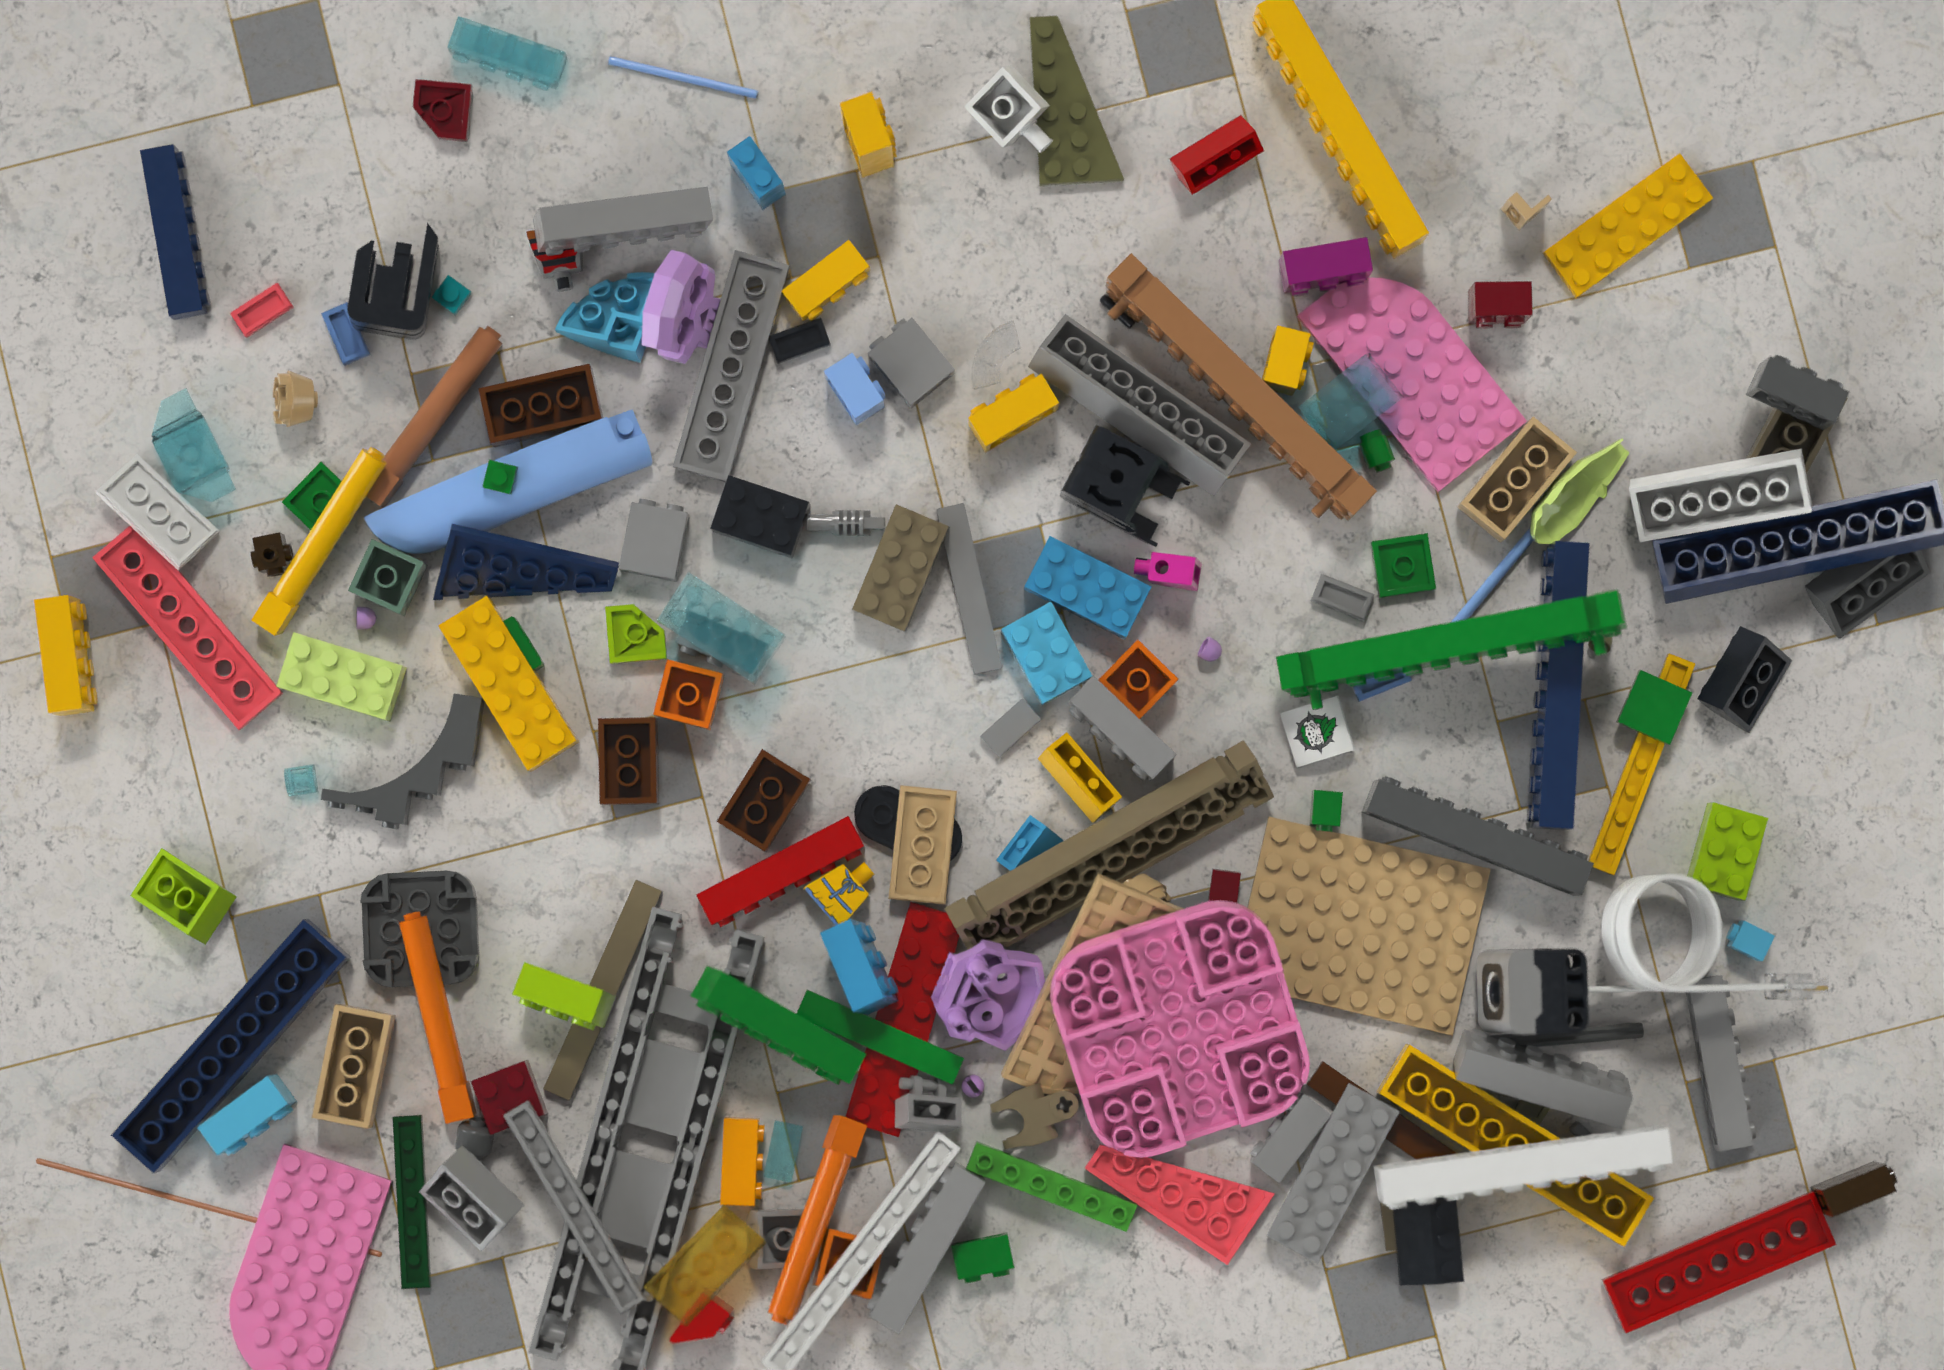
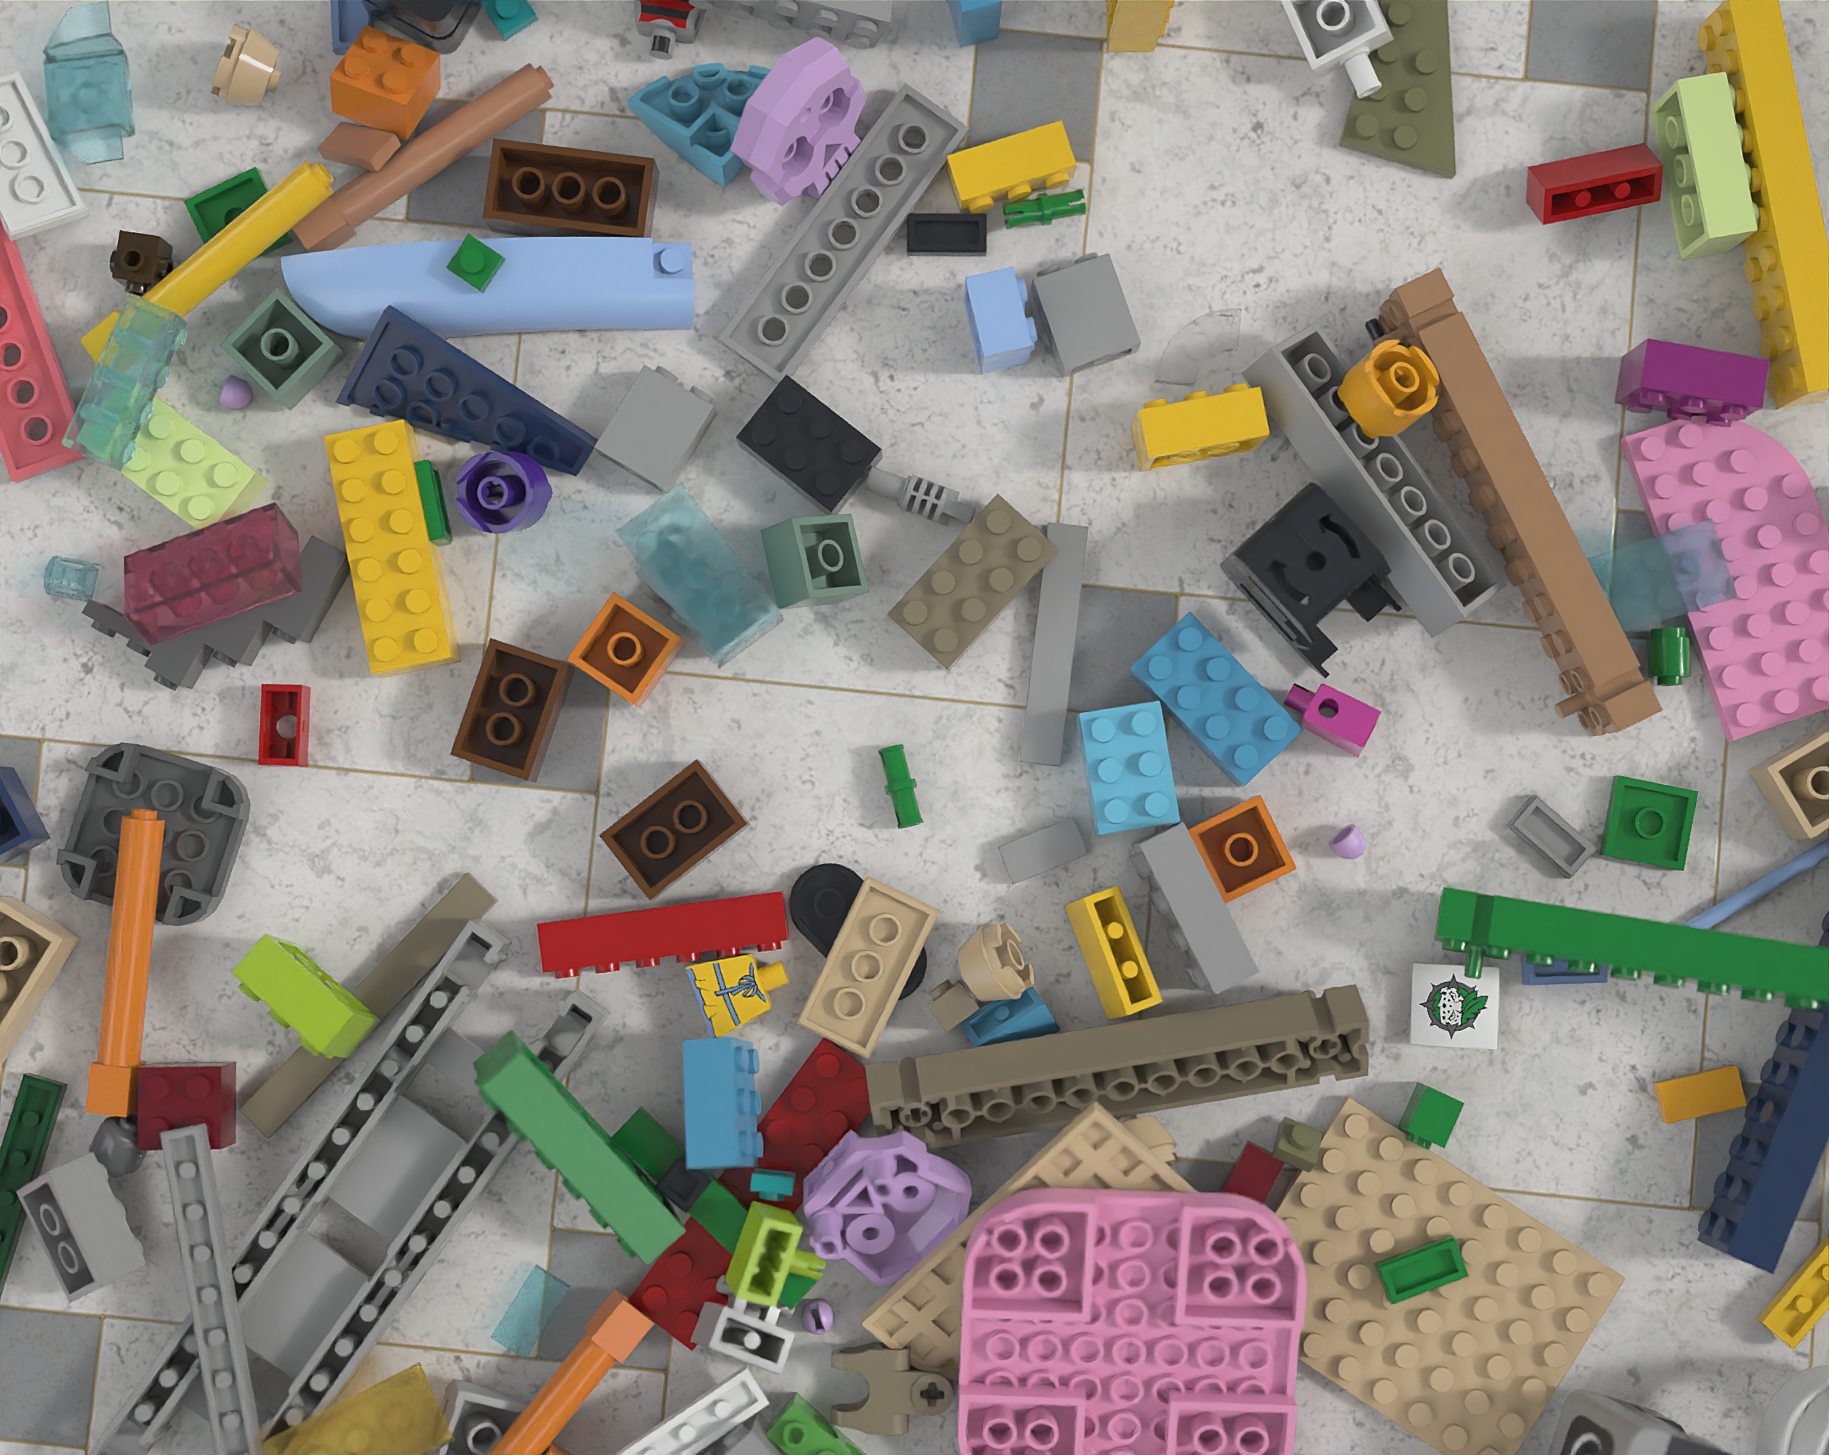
camera: 20 degrees right, 0 degrees up
(299, 638) = (125, 383): none -> clear light blue brick
(387, 424) = (359, 146): none -> nougat tile
(390, 375) = (385, 82): none -> orange brick
(400, 742) = (212, 574): none -> clear pink brick
(470, 811) = (277, 702): none -> red piece
(553, 619) = (501, 473): none -> dark purple brick
(633, 635) = (583, 545): lime plate -> none
(741, 1161) = (467, 1307): light orange brick -> none
(791, 591) = (814, 561): none -> sand green brick
(853, 1027) = (682, 1184): none -> black tile
(858, 300) = (1044, 209): none -> green pin
(901, 719) = (900, 786): none -> green pin
(911, 1007) = (772, 1183): none -> teal plate
(925, 1050) = (767, 1254): none -> lime brick
(986, 849) = (951, 1004): none -> dark tan plate
(1004, 813) = (994, 964): none -> tan cone
(1126, 344) = (1389, 389): none -> light orange brick
(1245, 859) = (1297, 1144): none -> olive plate
(1285, 118) = (1704, 165): none -> yellowish green brick
(1285, 360) = (1597, 485): yellow brick -> none
(1353, 910) = (1421, 1269): none -> green tile
(1476, 837) = (1629, 1233): dark grey brick -> none
(1498, 731) = (1700, 1093): none -> light orange tile

